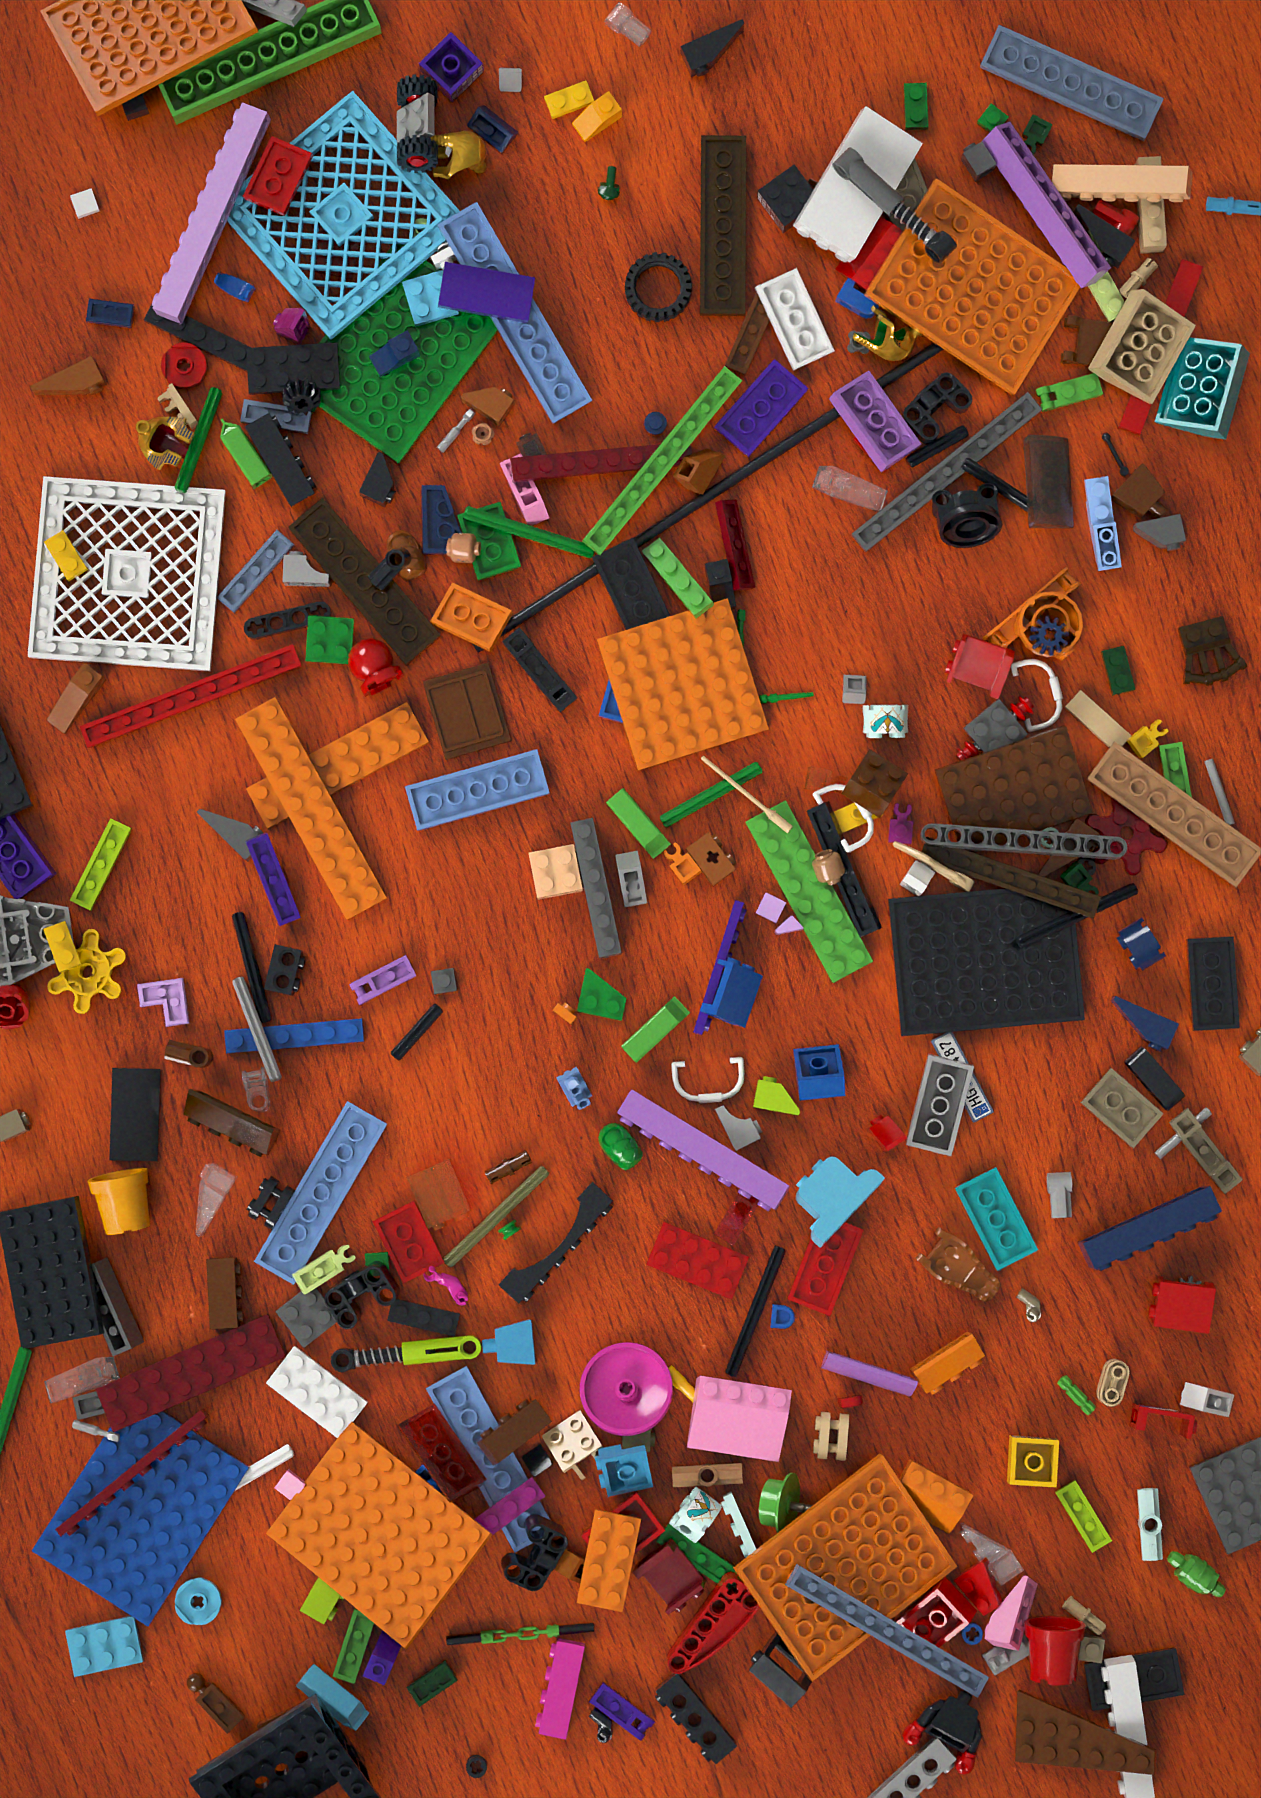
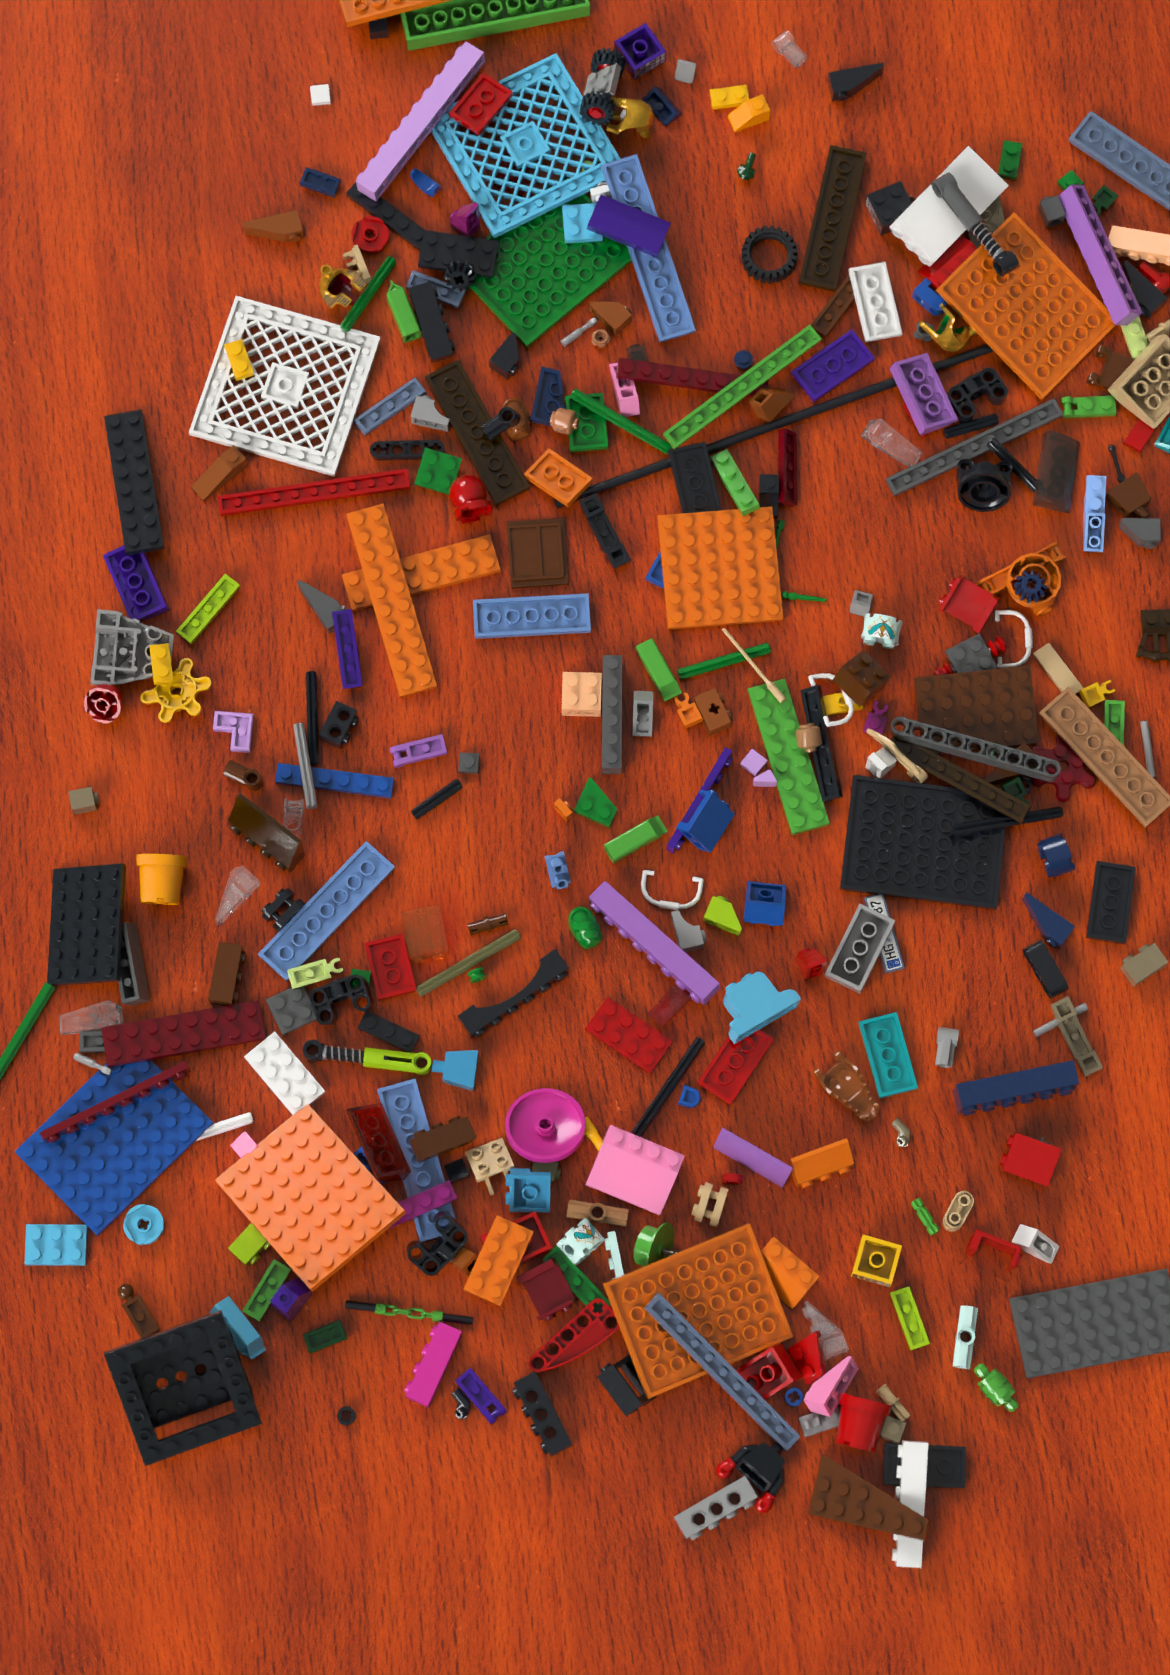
camera: 10 degrees right, 10 degrees down
(135, 1114) = (187, 815): black slope -> none
(394, 354) = (544, 259): dark blue arch -> none
(452, 1283) = (419, 1009): dark pink arm -> none
(1118, 670) = (1083, 634): dark green plate -> none
(1121, 1108) = (1013, 987): dark tan plate -> none

